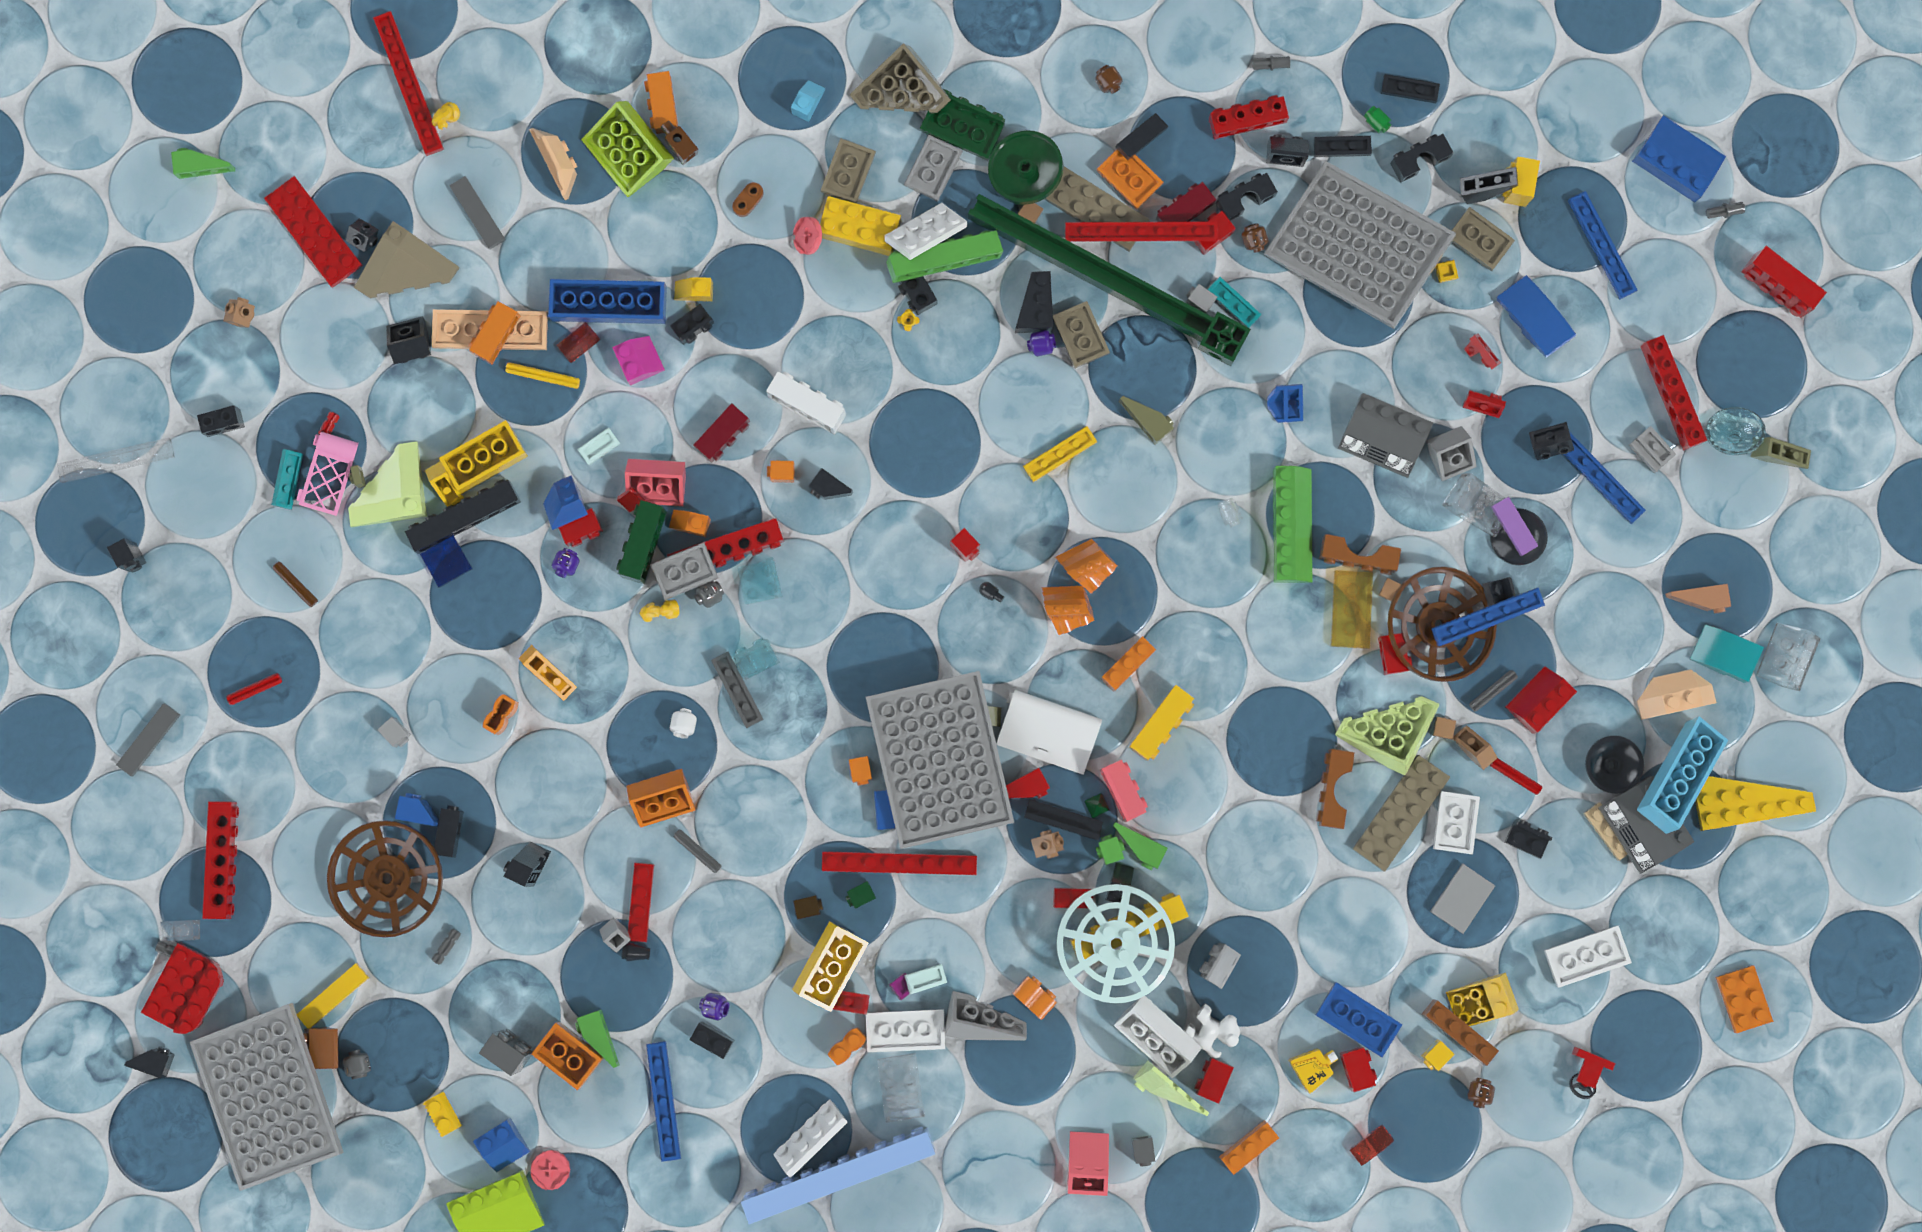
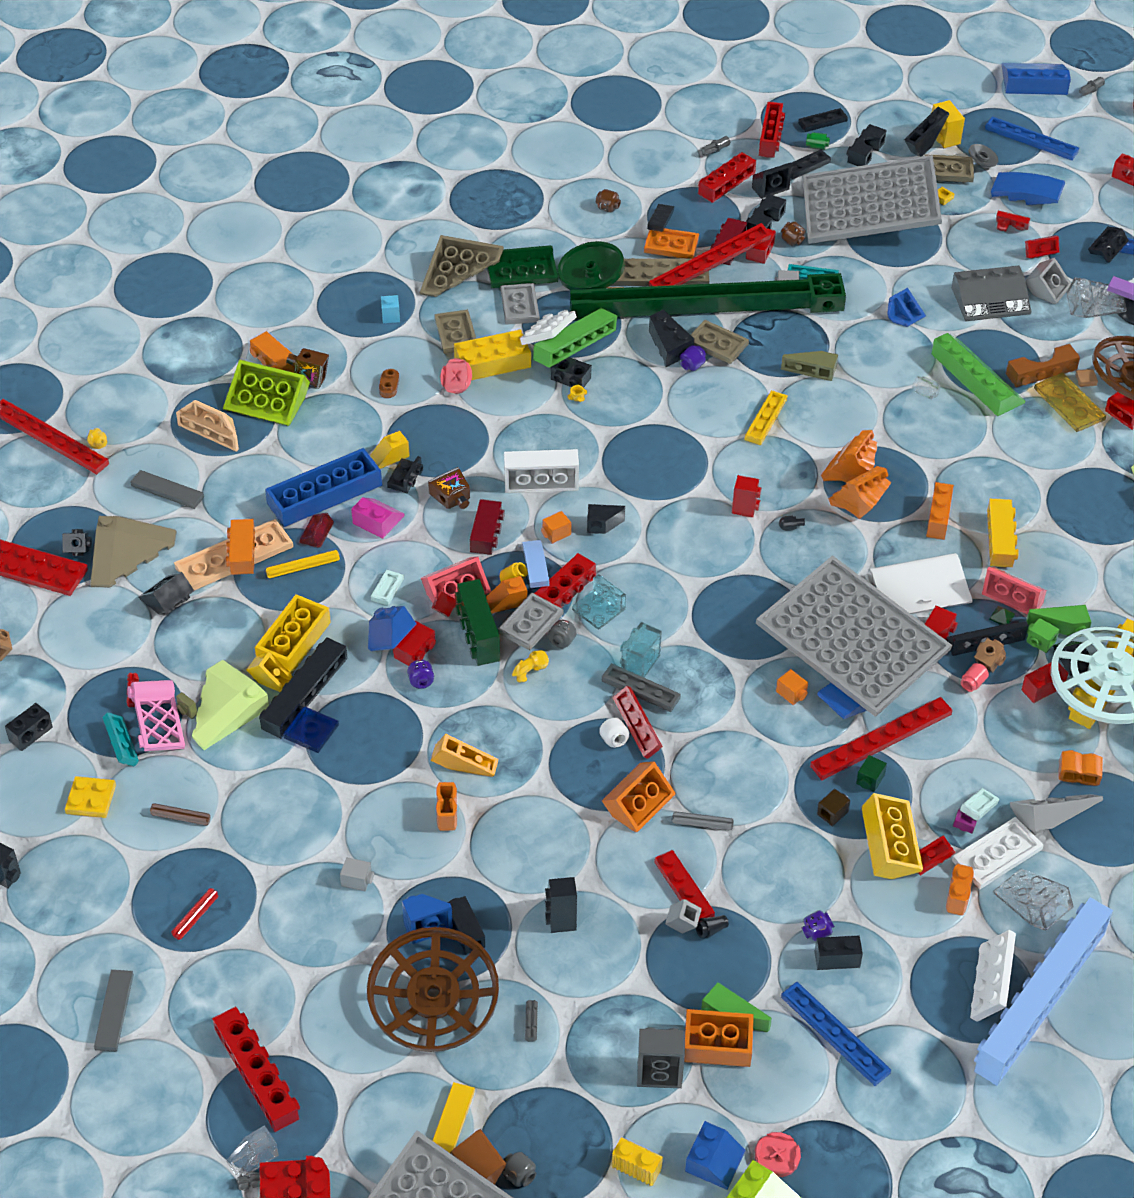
camera: 30 degrees left, 35 degrees down
(235, 521) = (90, 797): none -> yellow plate
(707, 505) = (513, 571): none -> yellow brick
(709, 724) = (637, 722): none -> plate
(719, 370) = (450, 489): none -> reddish brown torso
(735, 503) = (535, 563): none -> light blue slope
(1019, 855) = (974, 677): none -> coral brick
(1339, 78) = (772, 129): none -> red brick
(1534, 244) = (983, 155): none -> dark grey dish

